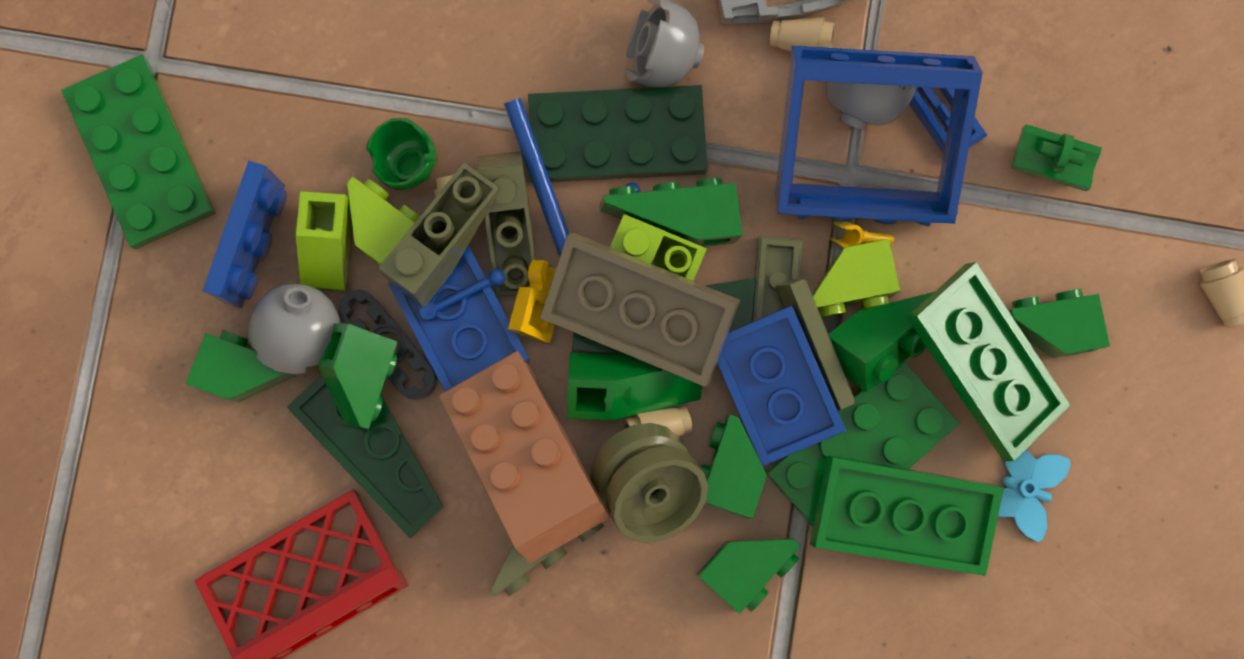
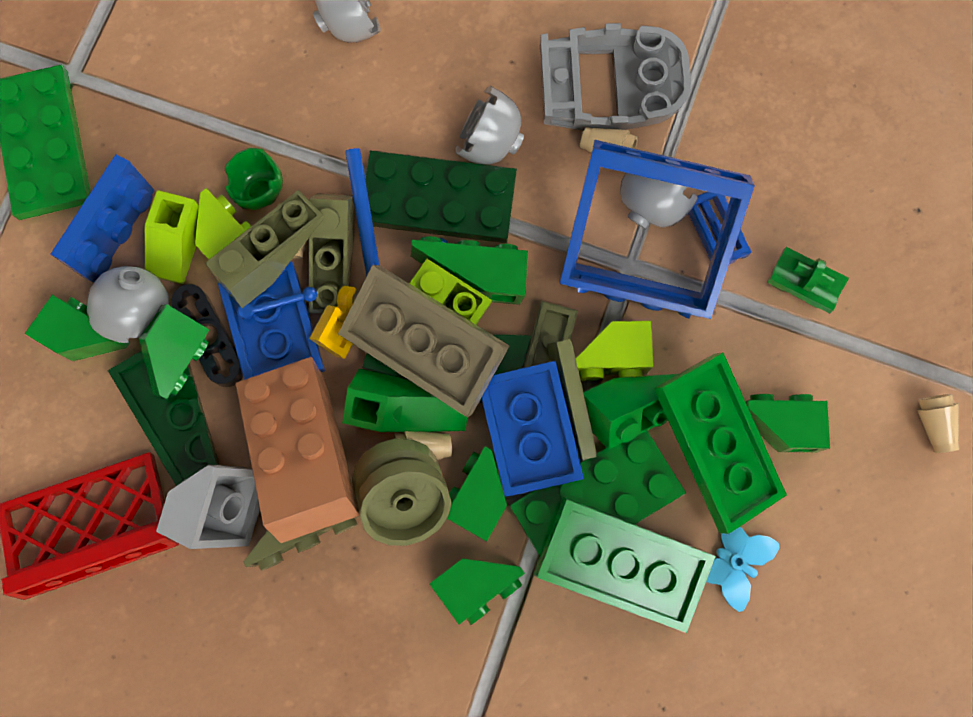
camera: 15 degrees right, 5 degrees down
(444, 539) = (212, 508): none -> light grey slope
(855, 235) = (623, 314): yellow hand -> none

